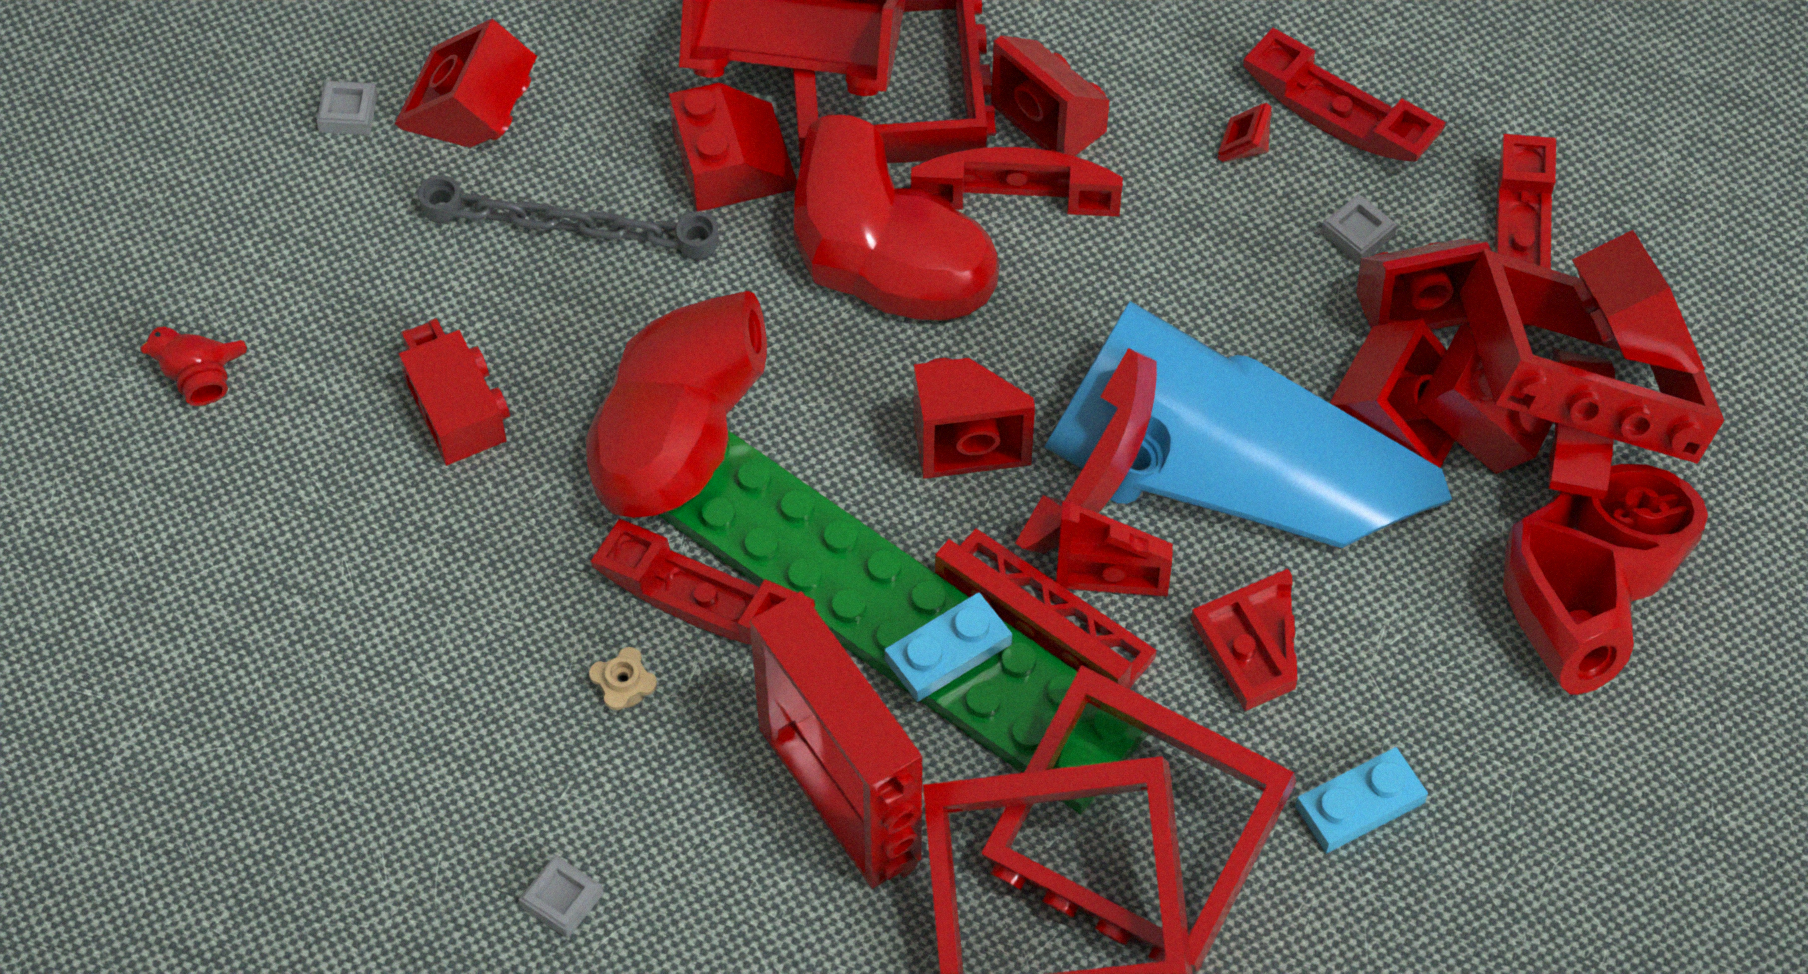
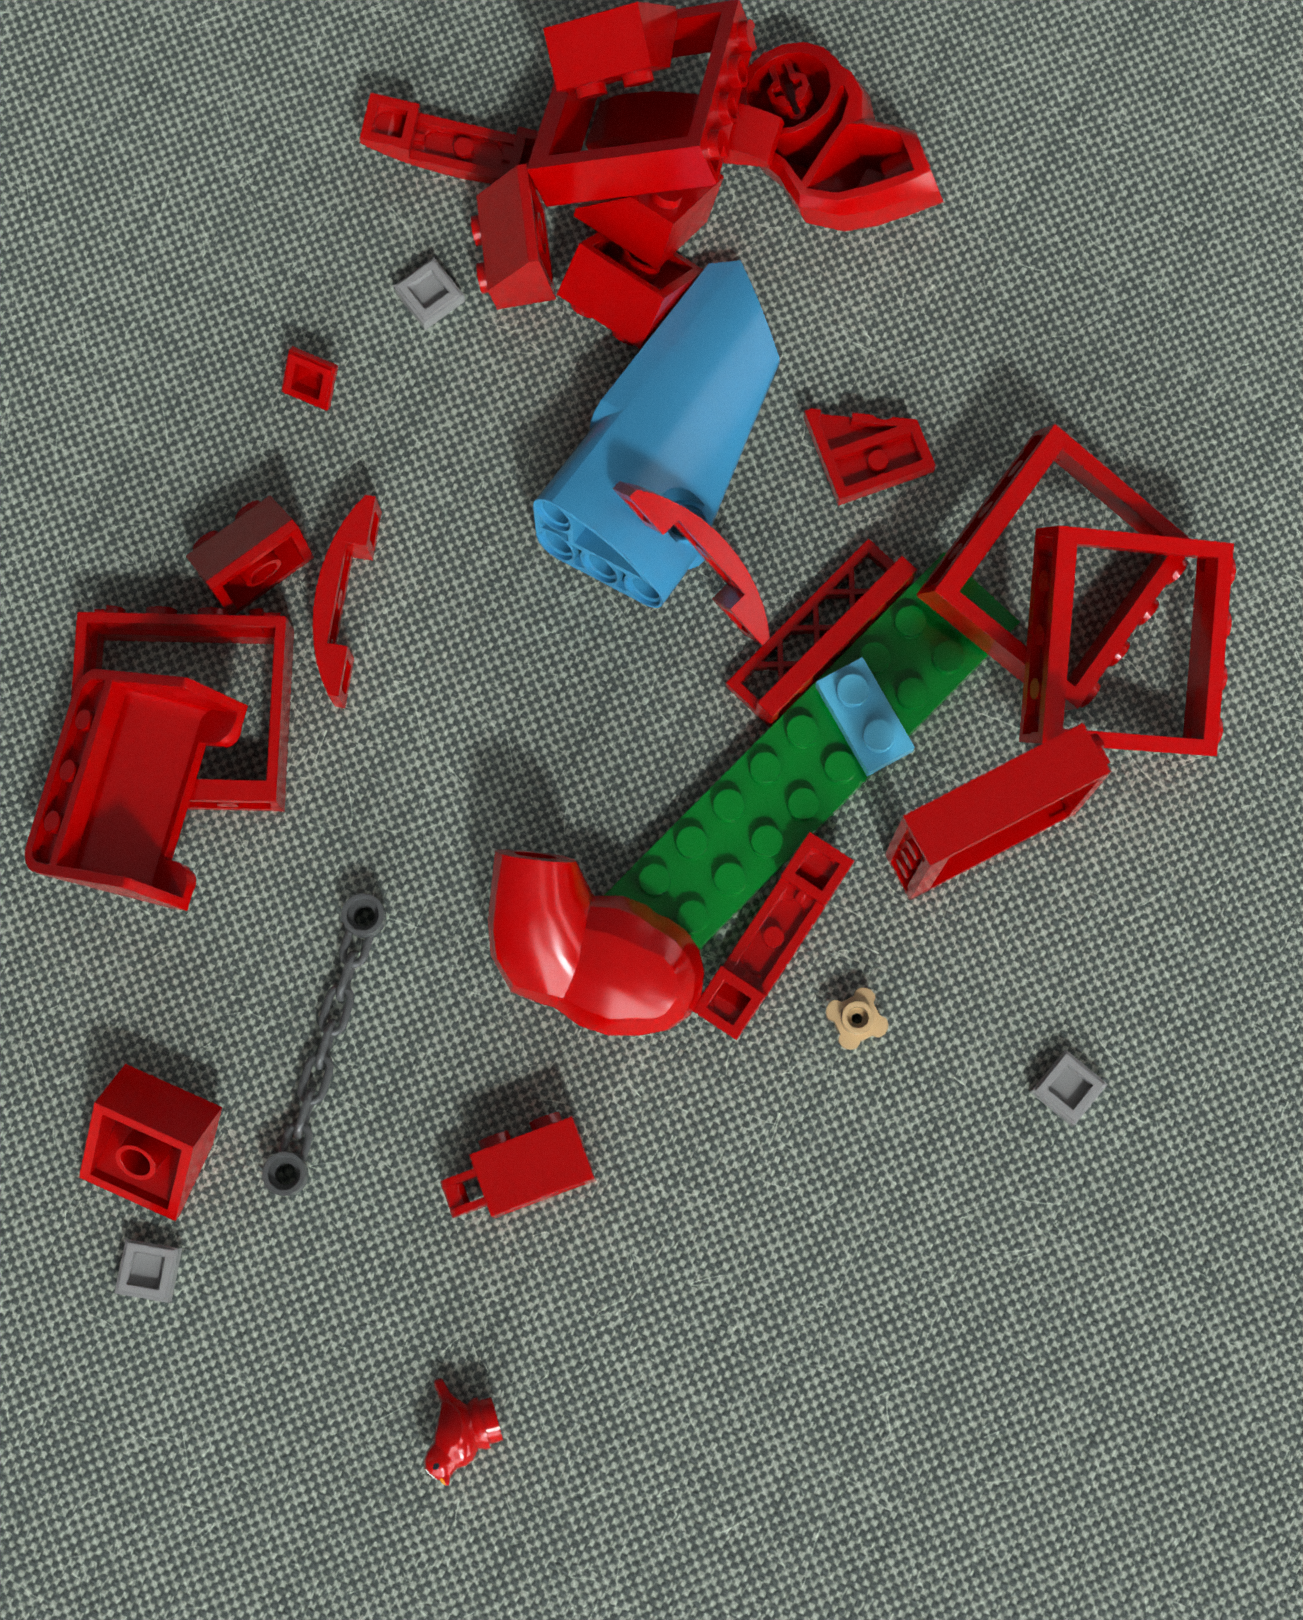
camera: 80 degrees left, 20 degrees up
(729, 146) = (260, 875): red slope -> none
(881, 241) = (402, 730): red piece -> none
(969, 419) = (624, 675): red slope -> none
(1110, 555) = (782, 561): red wing -> none
(1336, 106) = (288, 284): red slope -> none
(1361, 800) = (1026, 385): medium azure plate -> none

